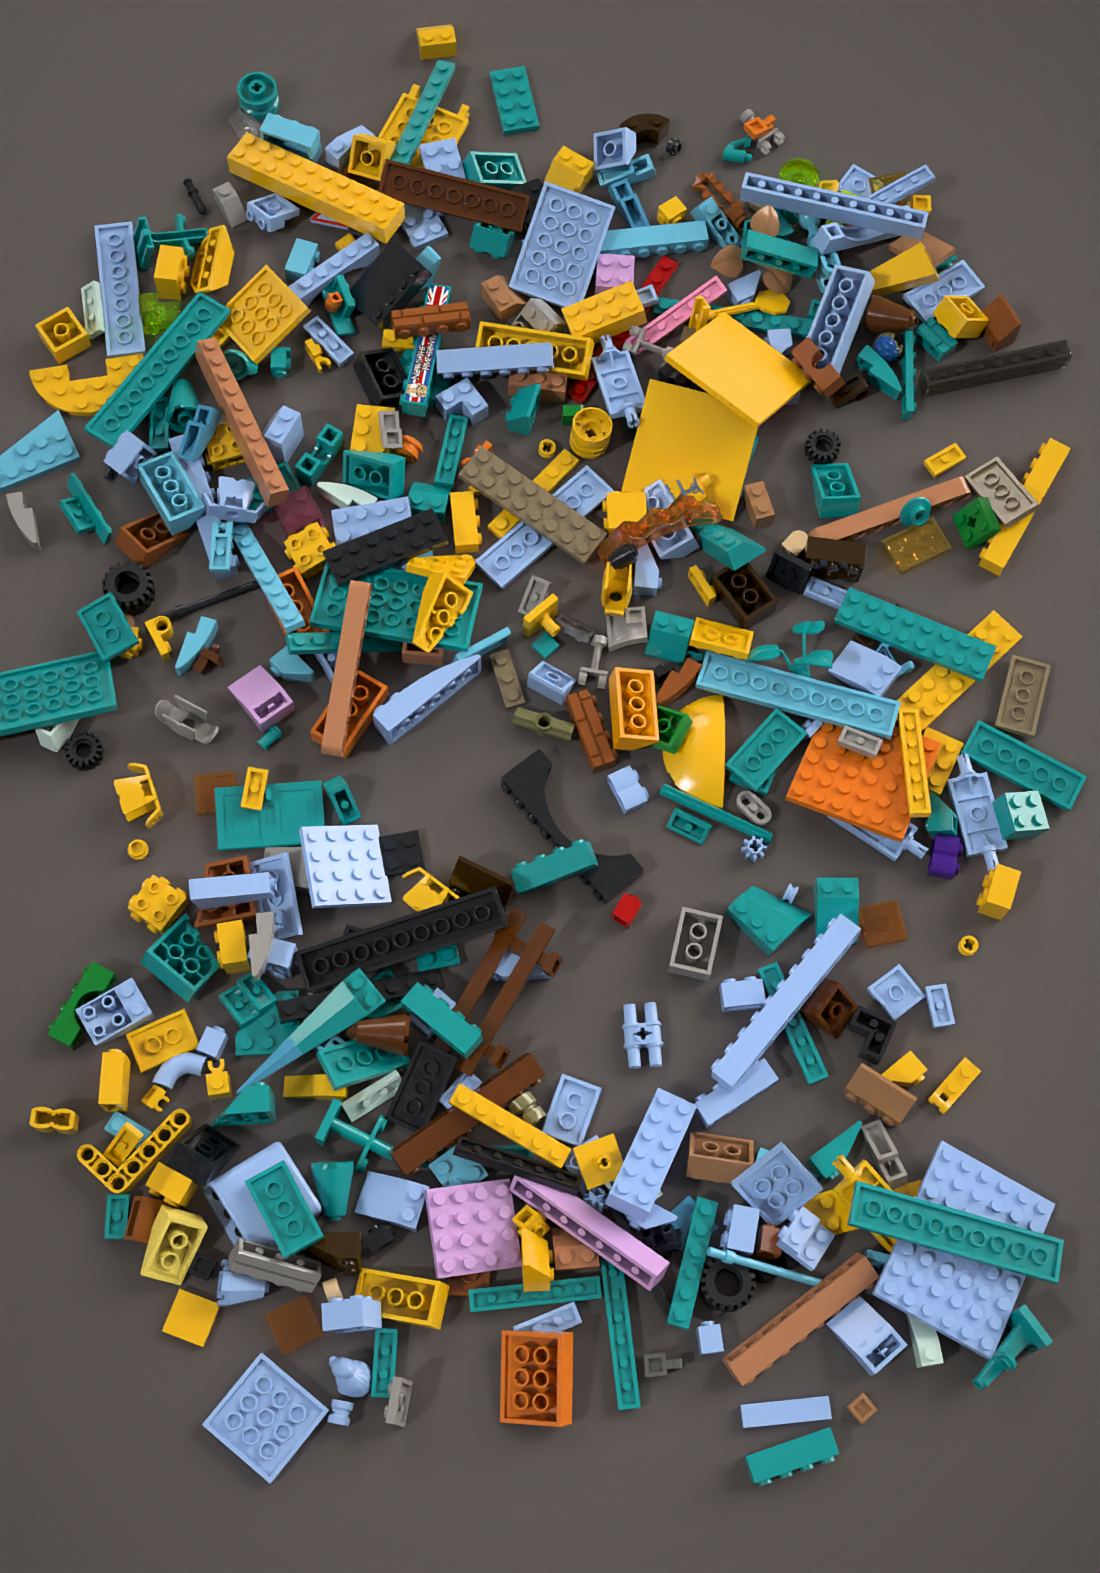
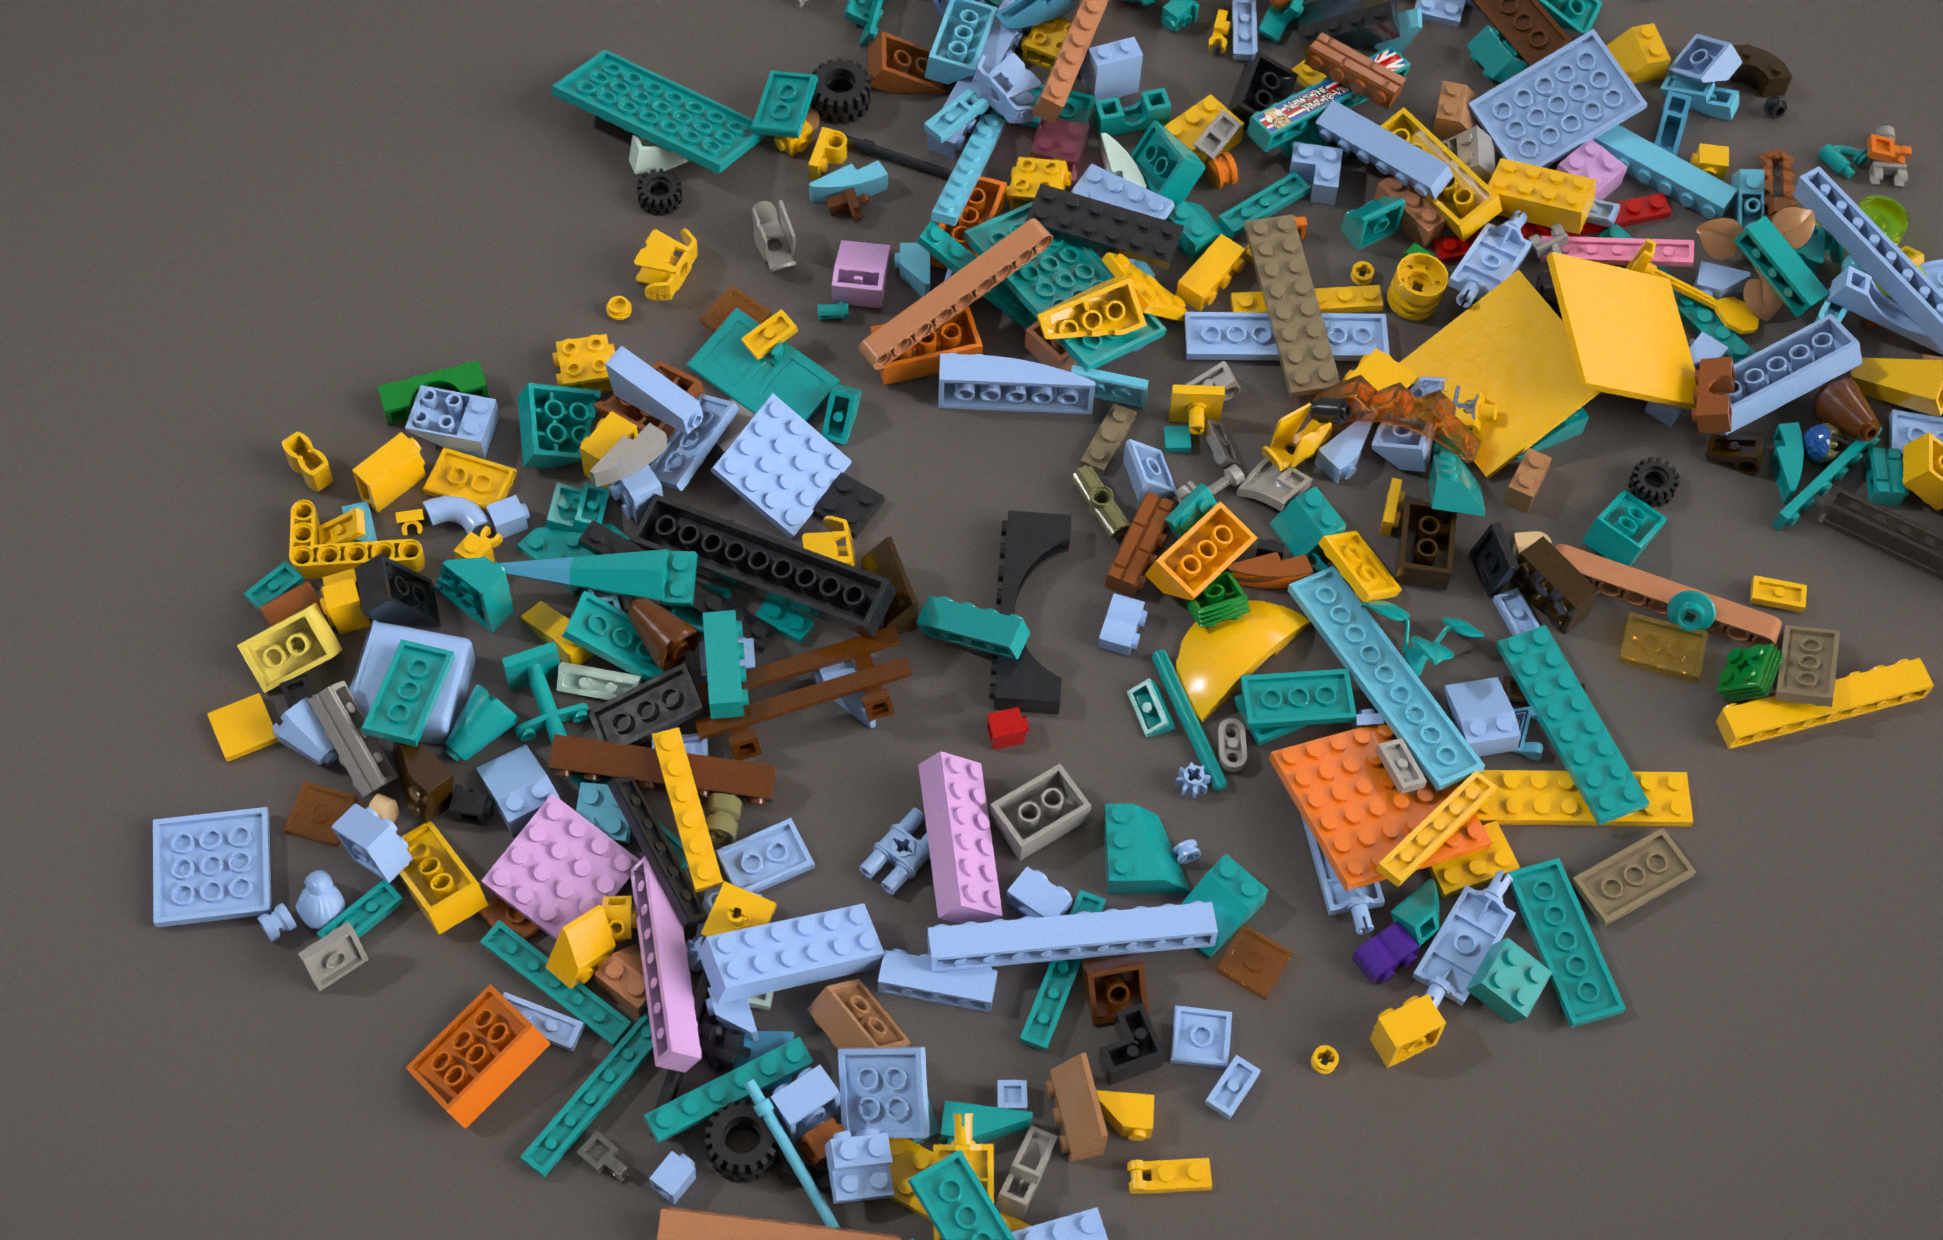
camera: 45 degrees right, 10 degrees down
(603, 681) = (1190, 510): none -> teal plate
(671, 1001) = (959, 839): none -> lavender brick
(835, 1120) = (1012, 1094): none -> light blue plate

